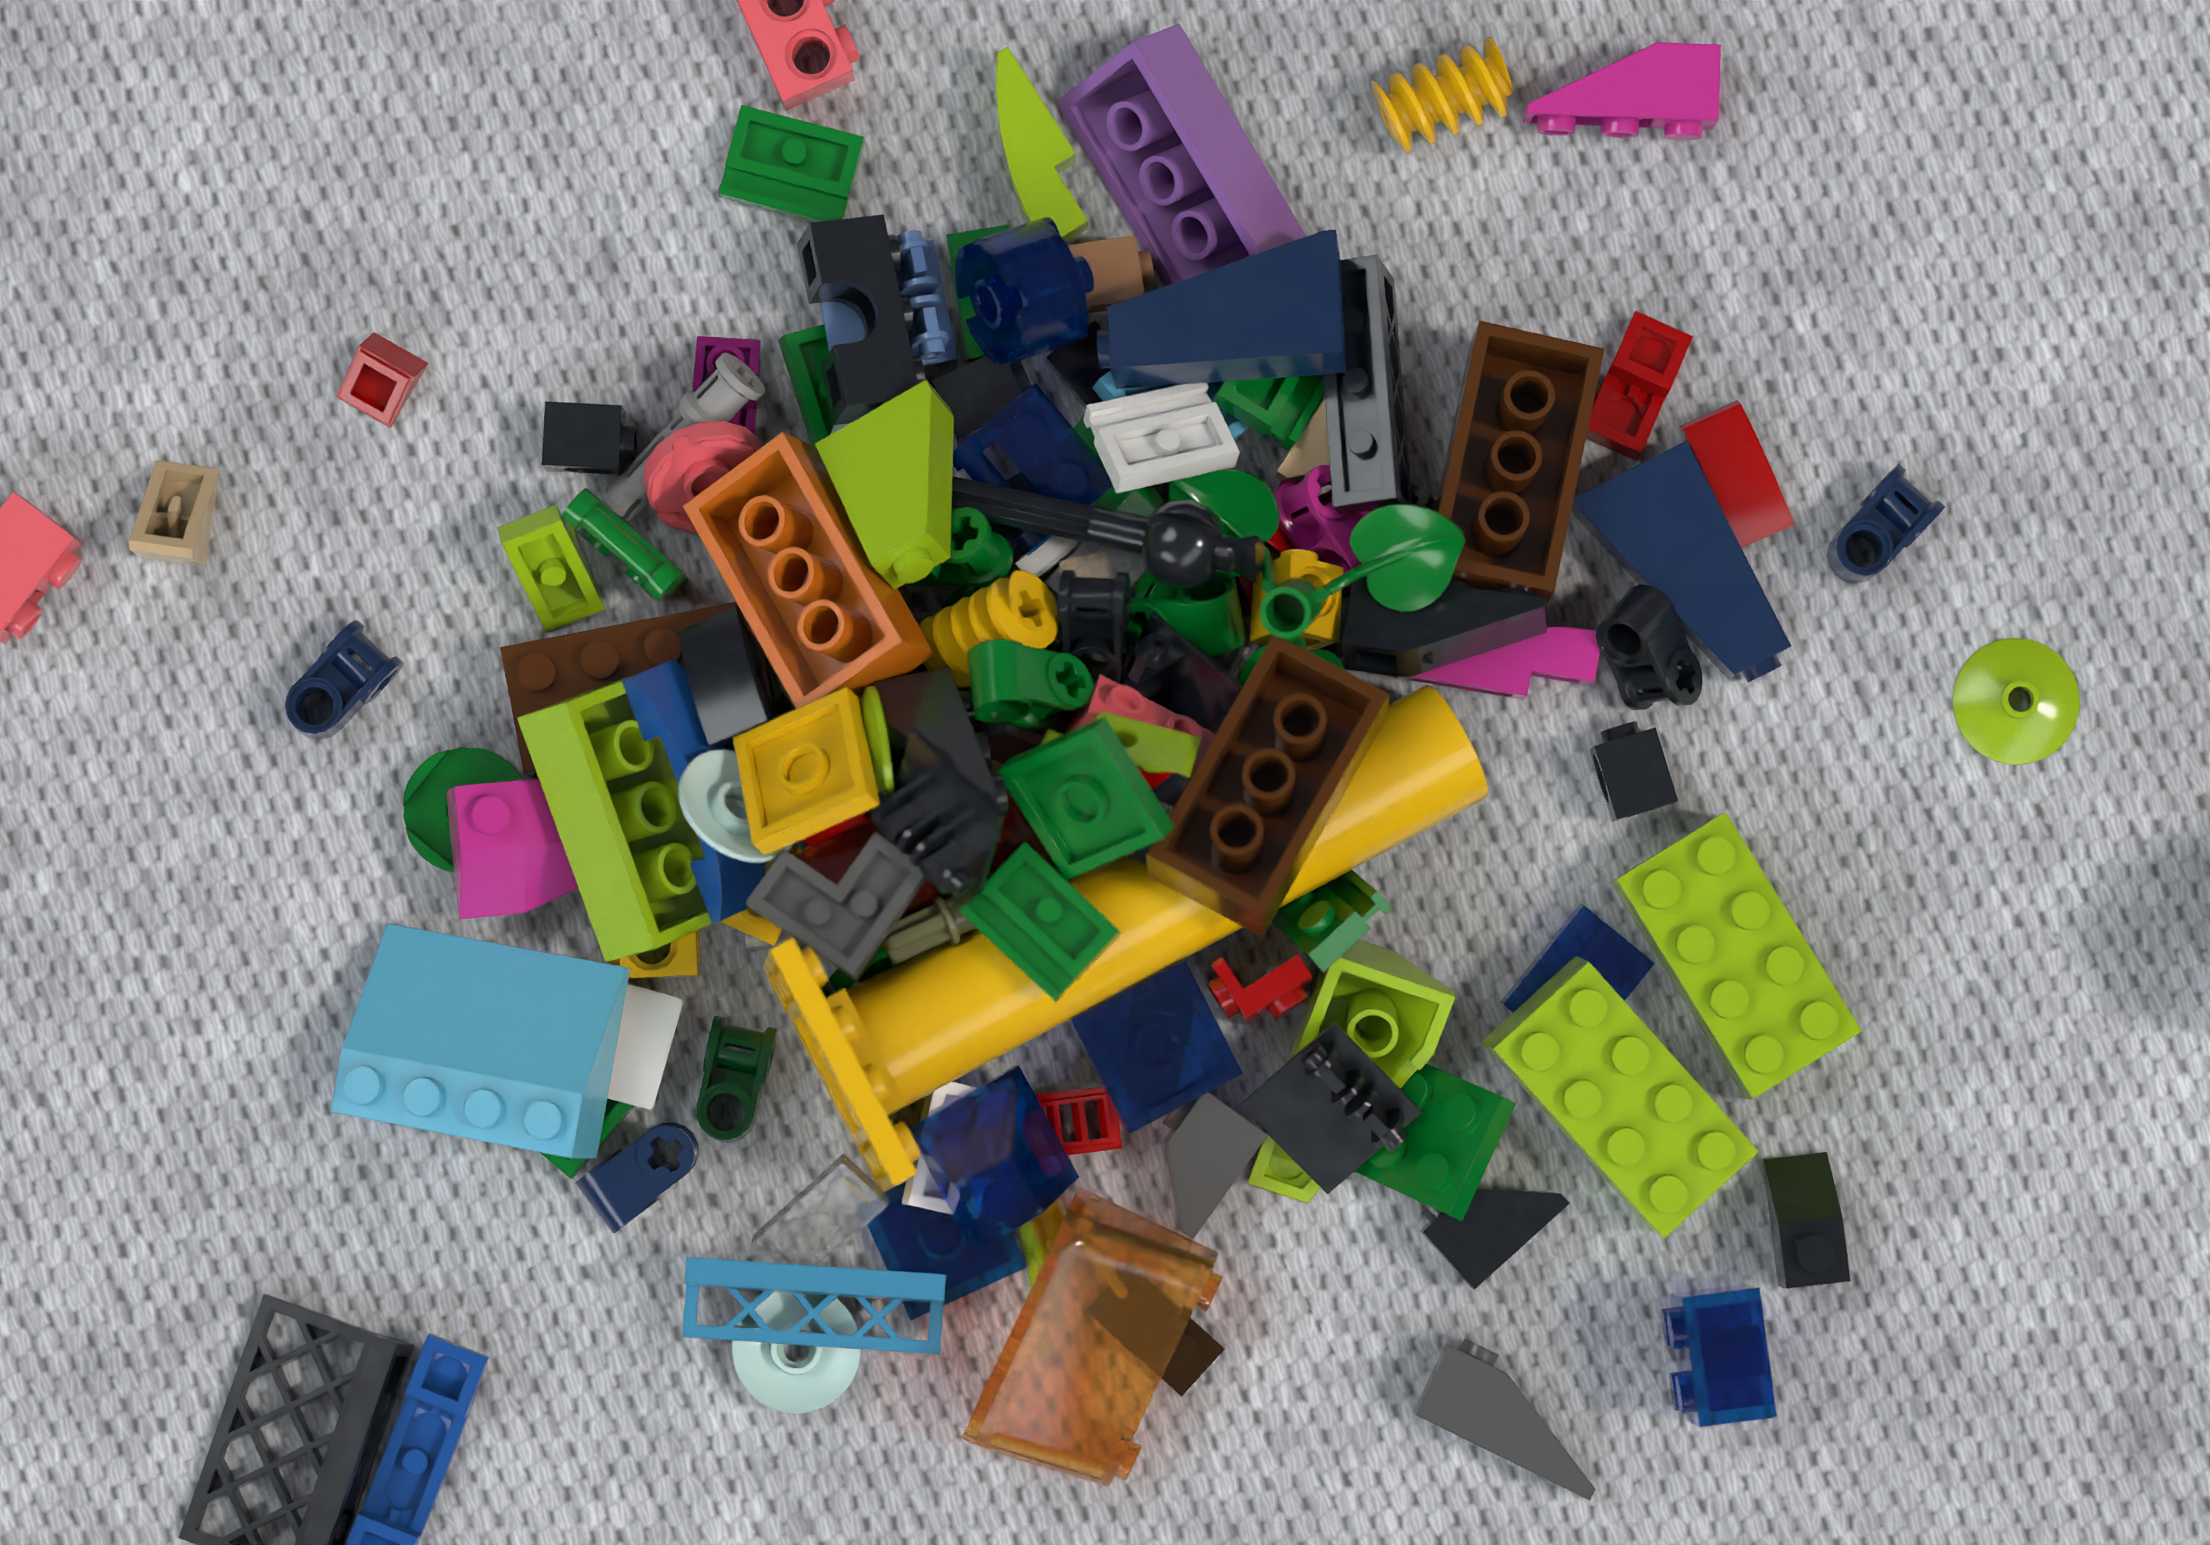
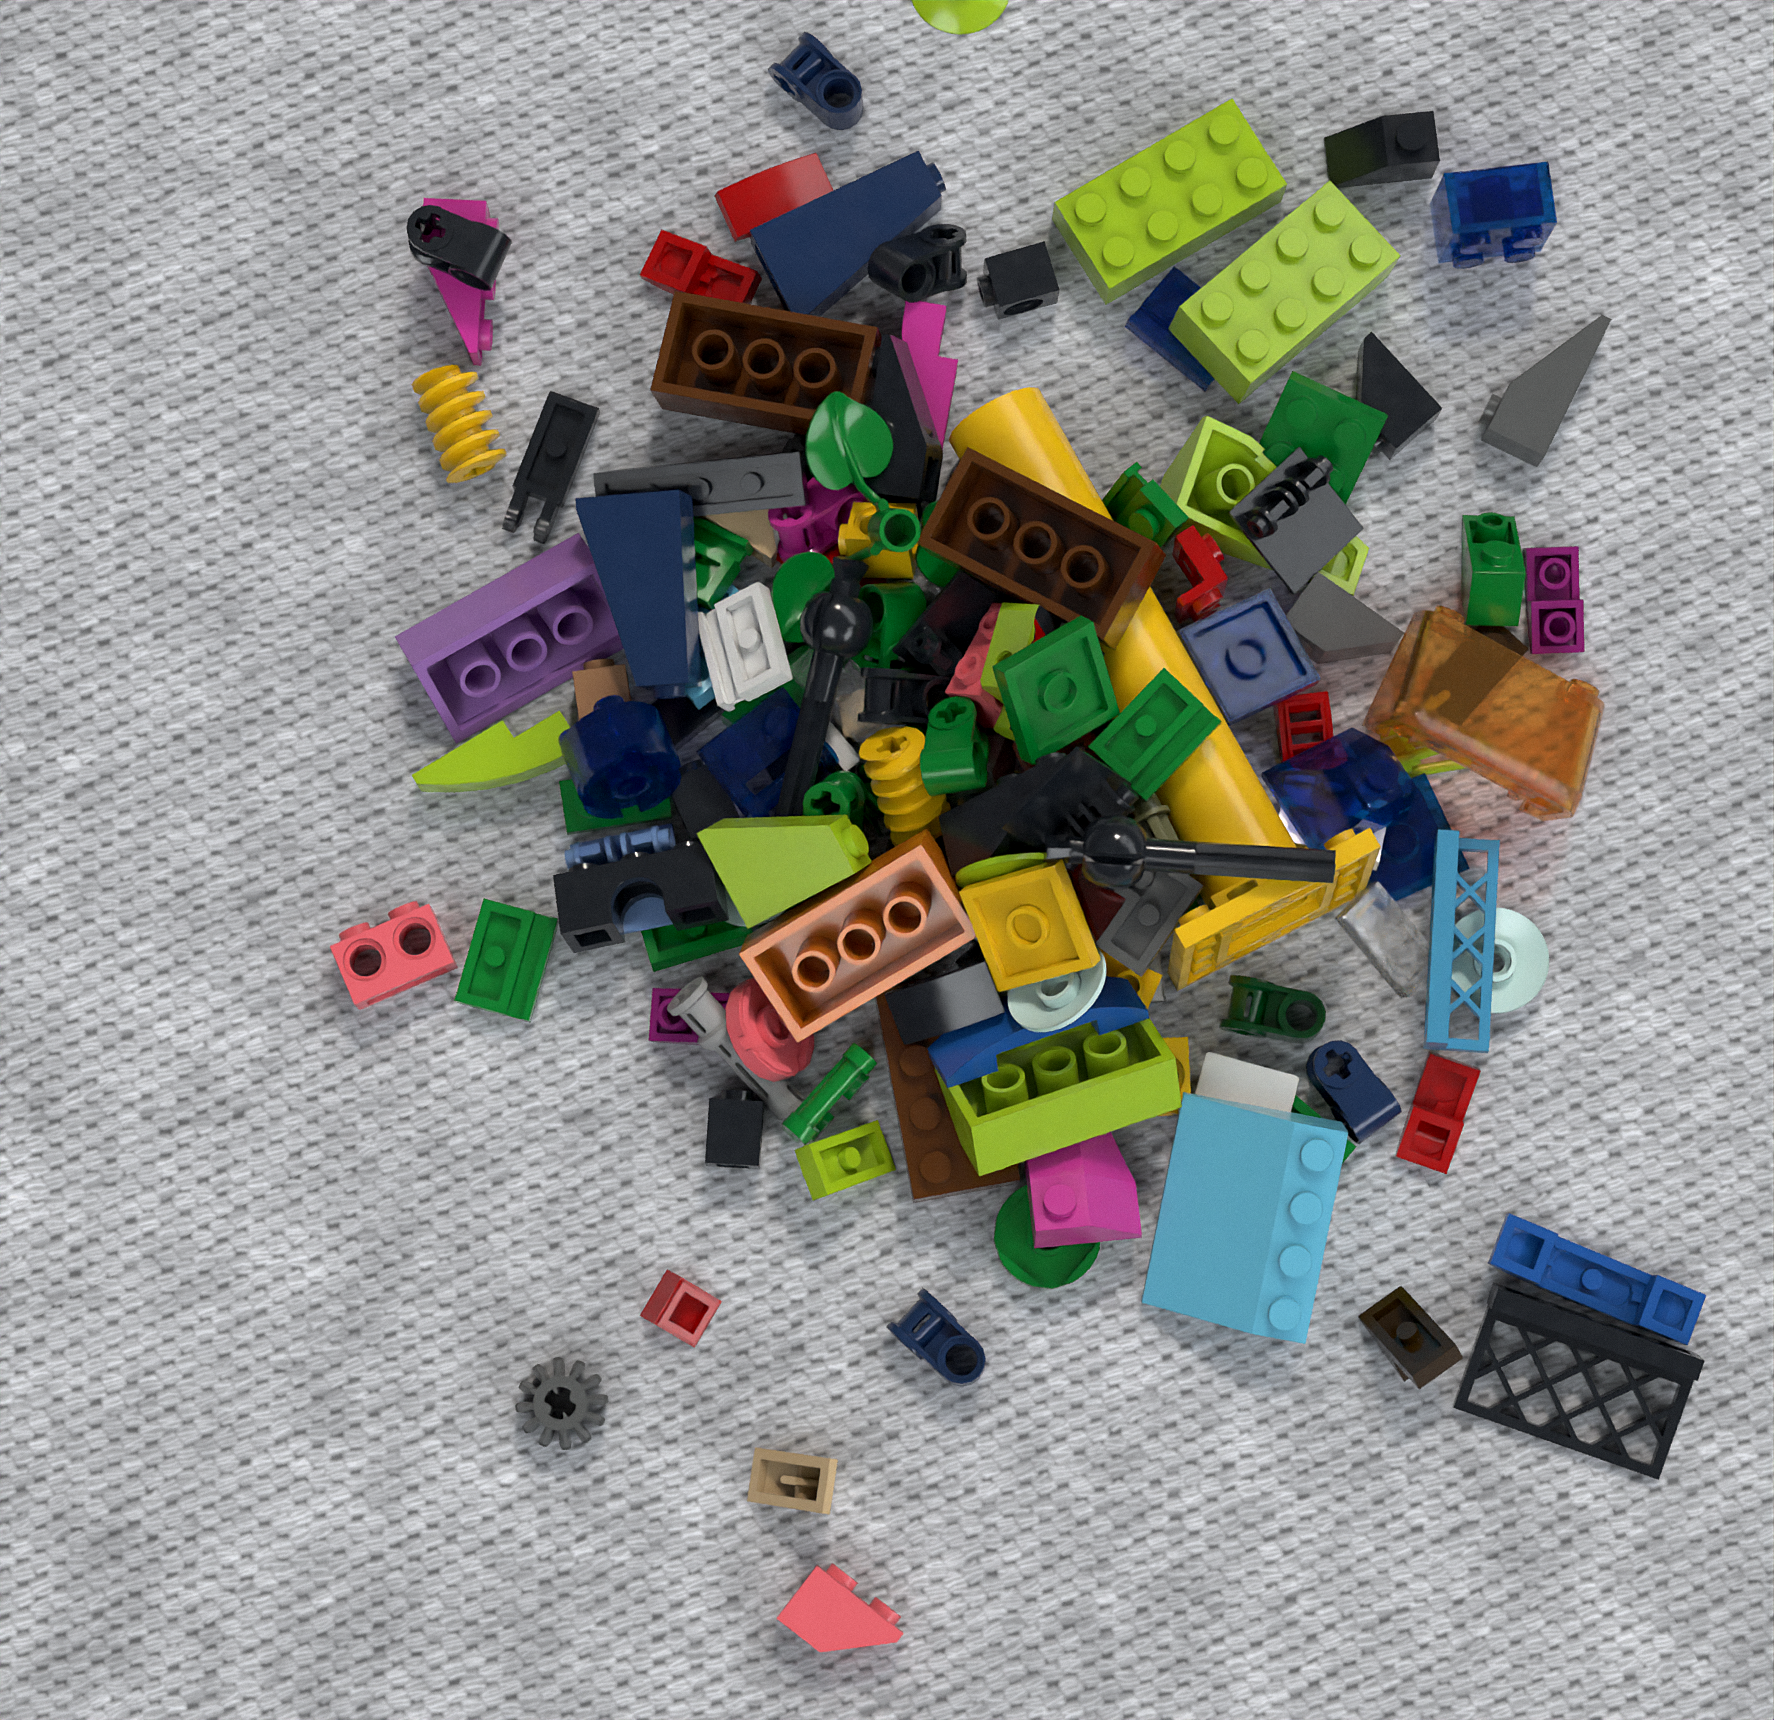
camera: 90 degrees left, 5 degrees down
(271, 261) = (545, 1410): none -> dark grey gear
(342, 1240) = (1410, 1338): none -> dark brown slope
(615, 1279) = (1437, 1112): none -> red slope
(881, 869) = (1118, 853): none -> black piece
(1244, 1429) = (1553, 600): none -> magenta slope
(1278, 1350) = (1491, 570): none -> green slope
(1400, 208) = (551, 461): none -> black hinge
(1651, 94) = (466, 247): none -> black piece

